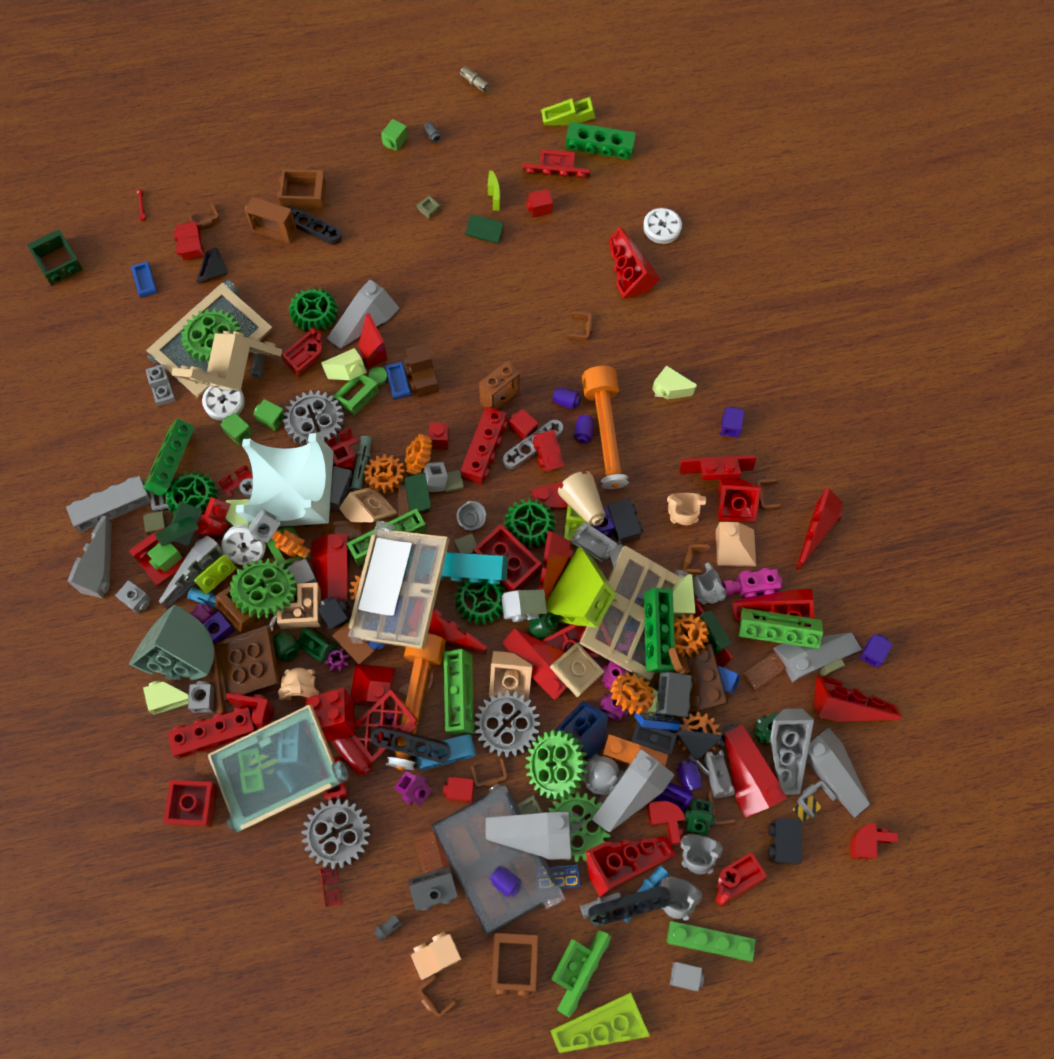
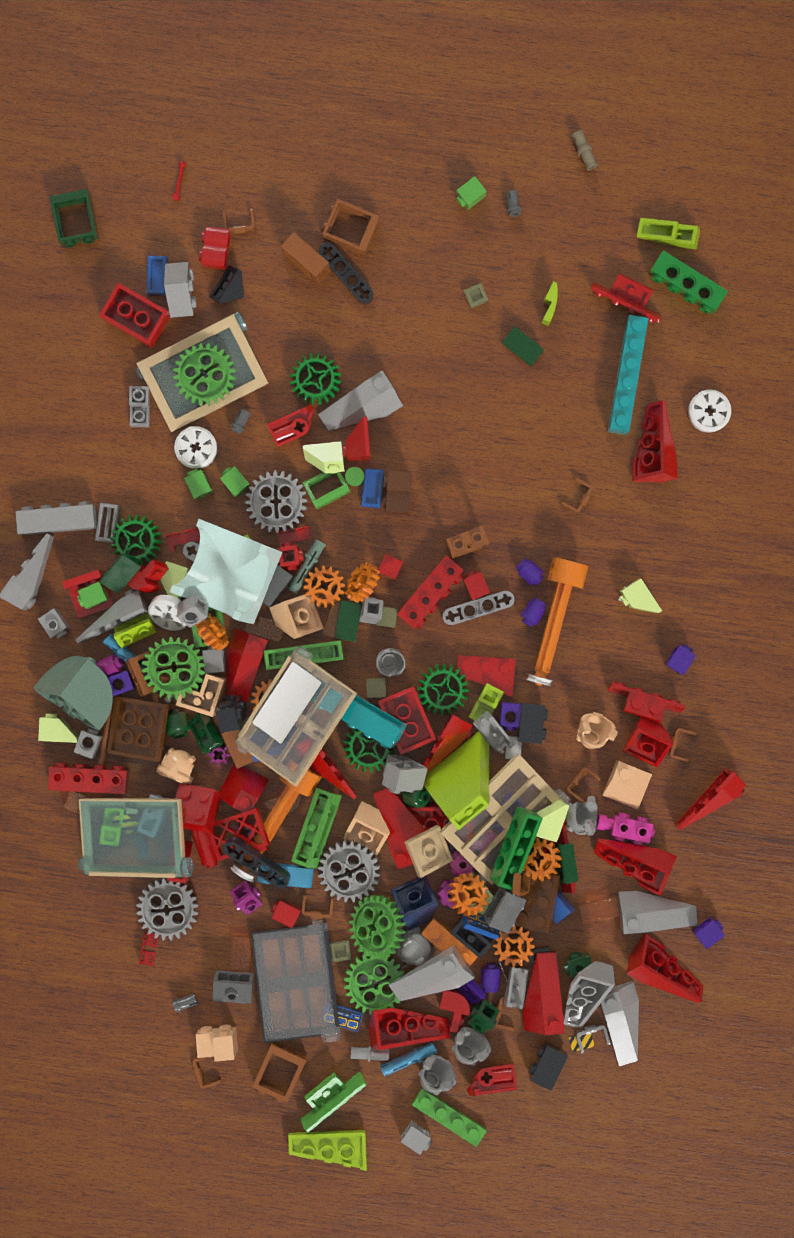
camera: 25 degrees right, 20 degrees up
(132, 311) = (135, 315): none -> red brick
(154, 522) = (94, 553): olive tile -> none
(165, 276) = (178, 288): none -> light grey brick
(168, 457) = (125, 495): green brick -> none
(176, 531) = (110, 583): dark green slope -> none
(190, 803) = (51, 837): red brick -> none
(227, 361) = (209, 420): tan bracket -> none
(262, 709) = (137, 783): red bracket -> none
(505, 881) = (295, 1008): dark purple brick -> none
(536, 834) = (336, 978): light grey wedge -> none
(539, 203) = (592, 337): red brick -> none
(548, 450) = (489, 622): red brick -> none
(582, 220) = (627, 374): none -> teal brick
(582, 496) = (501, 692): tan cone -> none
(658, 897) = (391, 1068): black beam -> none
(697, 742) = (508, 958): black slope -> none
(780, 628) = (630, 882): bright green brick -> none
(832, 667) = (661, 934): olive tile -> none
(865, 840) = (617, 1089): red brick -> none

